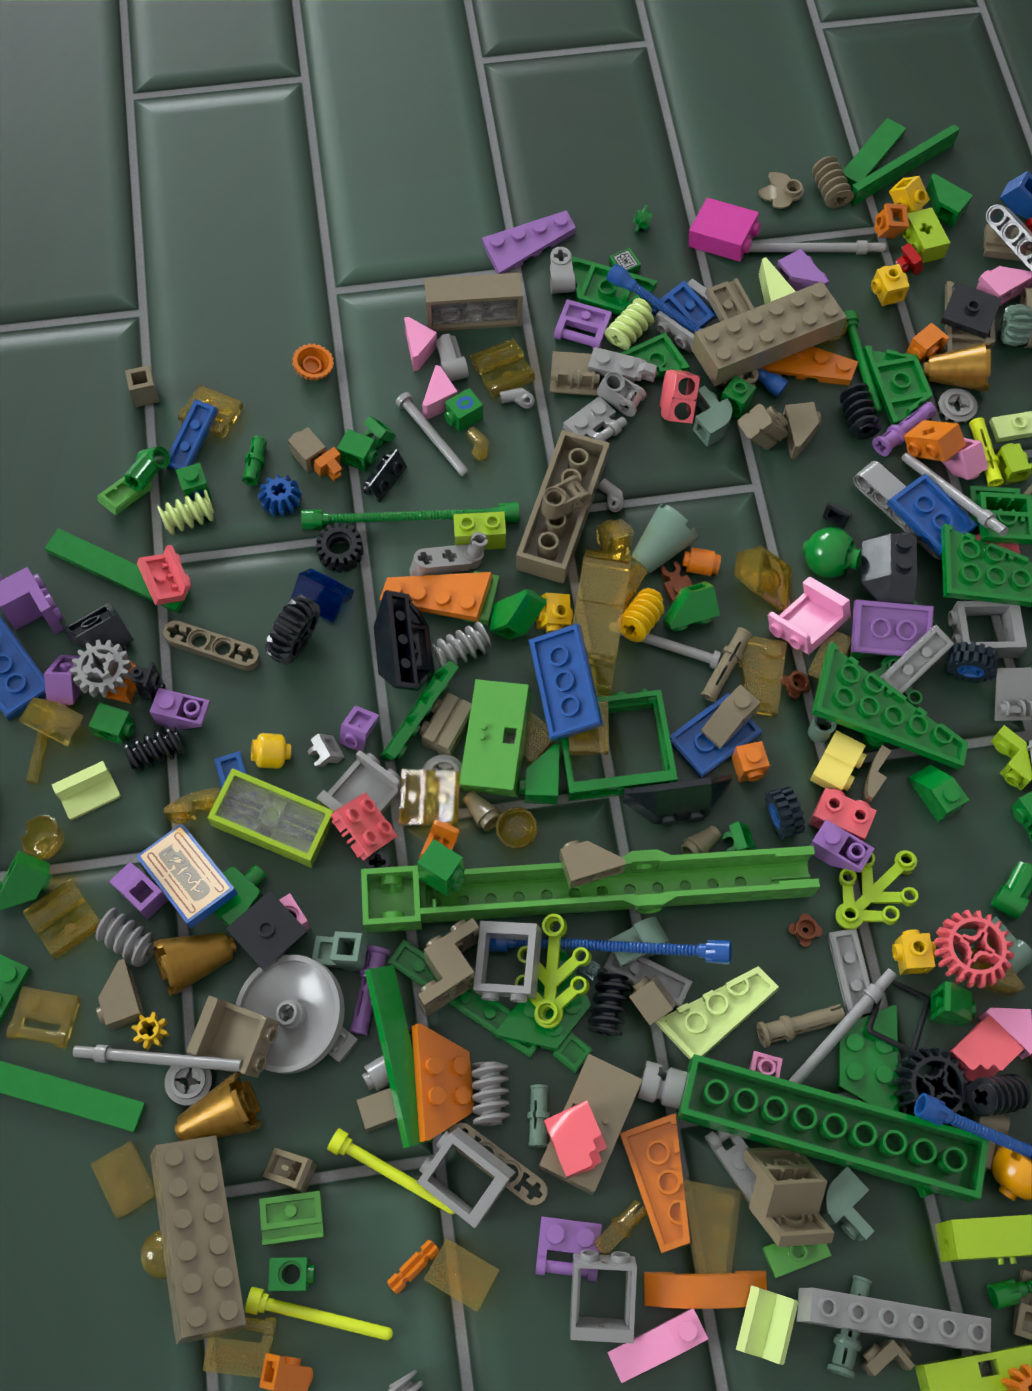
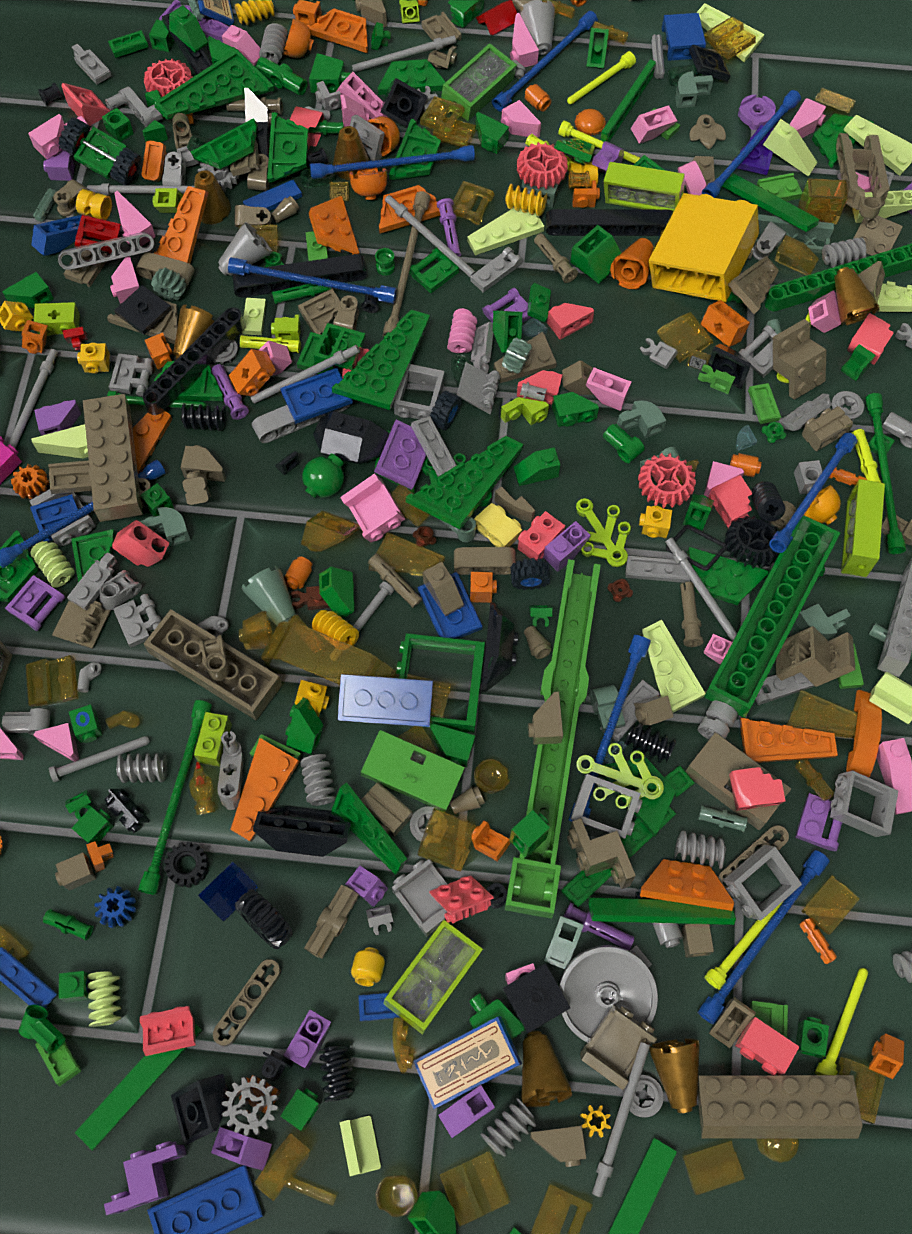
camera: 75 degrees left, 0 degrees up
(262, 1211) = (767, 1047): none -> coral brick
(305, 1145) = (713, 1006): none -> blue hose
(310, 702) = (331, 922): none -> dark tan piece
(421, 535) = (202, 791): none -> clear yellow animal
(430, 474) = (141, 769): none -> light grey piece
(716, 271) = (29, 481): none -> orange gear
(787, 757) = (484, 560): none -> dark tan beam
(885, 320) = (125, 371): none -> light grey plate
(926, 378) = (216, 339): none -> black beam

